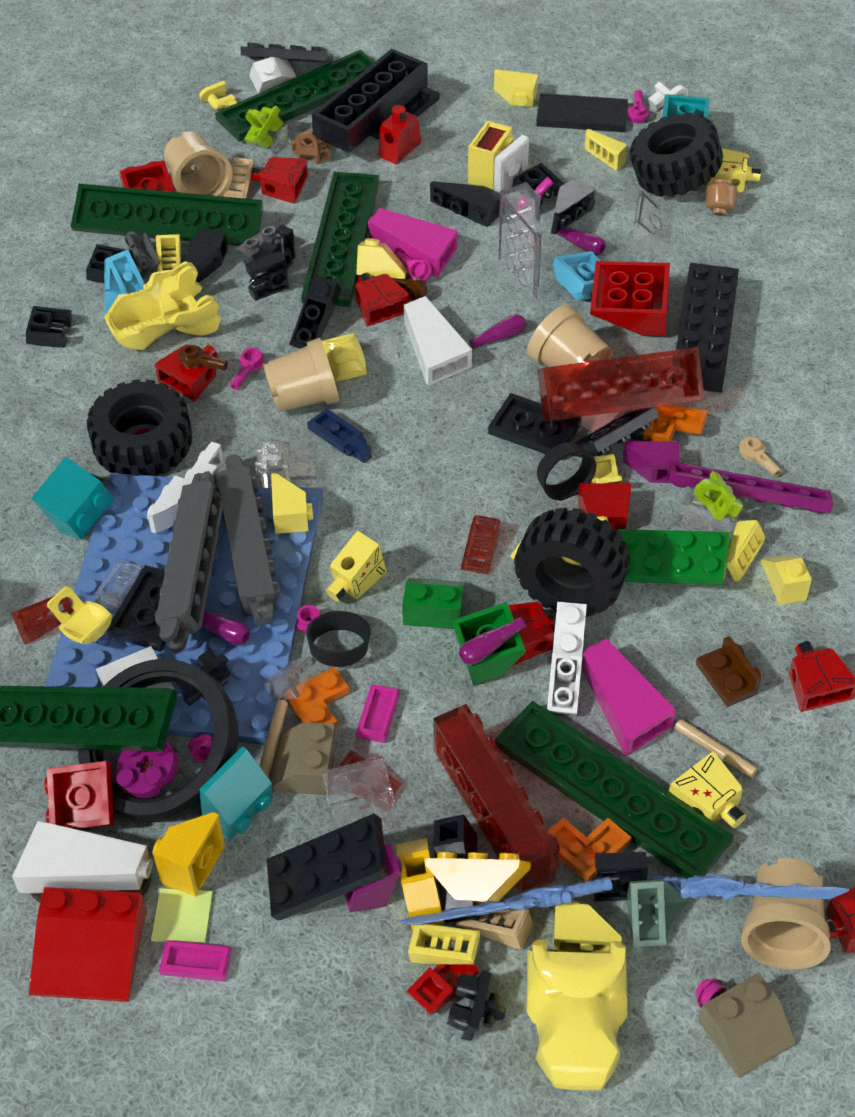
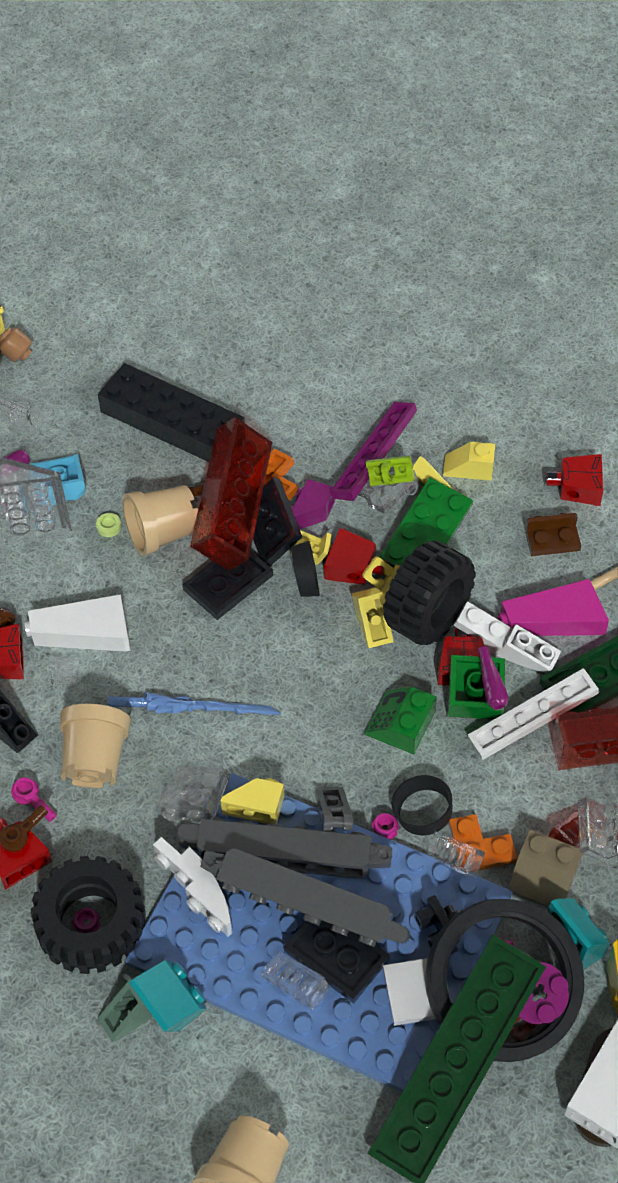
camera: 70 degrees left, 5 degrees up
(30, 627) = (305, 1089): clear red slope -> none
(80, 795) = (542, 1066): plate -> none
(87, 620) = (335, 1018): light yellow piece -> none
(226, 628) = (388, 890): magenta piece -> none
(273, 736) = (511, 888): tan bar -> none
(300, 563) = (334, 808): none -> dark grey plate
(340, 435) = (167, 739): dark blue hinge -> none
(345, 357) = (55, 700): light yellow piece -> none
(356, 568) = (351, 767): light yellow torso -> none
(375, 419) = (173, 705): none -> medium blue sword
(378, 713) = (508, 800): dark pink tile -> none
(483, 528) = (355, 658): clear red slope -> none
(490, 706) = (533, 714): none -> white plate
(502, 330) = (92, 566): magenta piece -> none
(632, 295) = (112, 449): red slope -> none
(754, 451) = (325, 436): tan plate -> none

